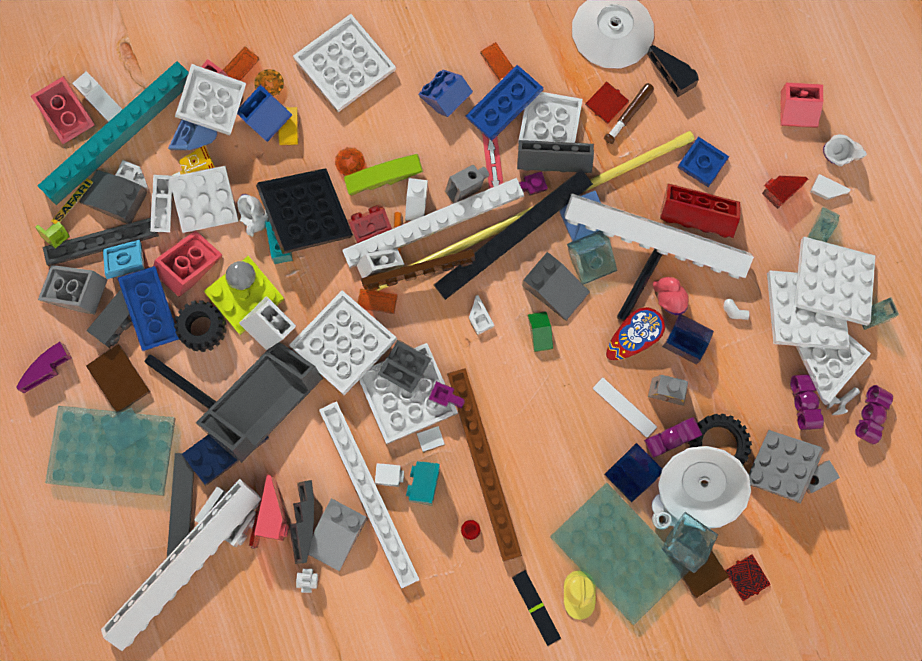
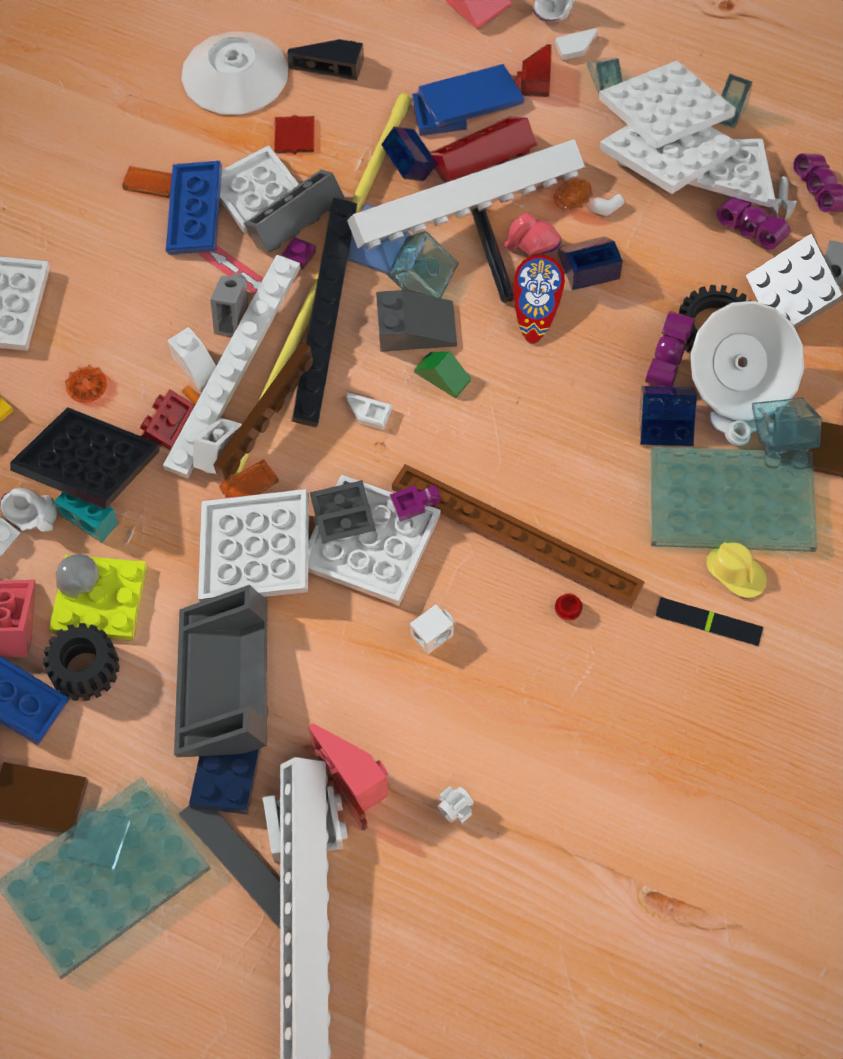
camera: 40 degrees left, 15 degrees down
(179, 381) = (112, 739): black axle -> none
(267, 324) = (155, 594): white slope -> none
(302, 530) = (392, 750): dark grey slope -> none
(336, 534) = (437, 733): light grey slope -> none
(369, 495) = (432, 666): white plate -> none
(383, 173) = (134, 363): lime slope -> none
(424, 483) = (478, 600): teal slope -> none
(430, 438) = (437, 562): white sticker -> none
(446, 92) = (124, 244): blue slope -> none
(624, 407) = (595, 371): white sticker -> none
(634, 106) = (325, 121): reddish brown piece -> none
(654, 177) = (409, 153): none -> clear blue brick
(668, 389) = (620, 315): light grey torso -> none
(716, 284) = (579, 187): none -> clear orange gear
(729, 169) = (470, 95): none -> blue tile

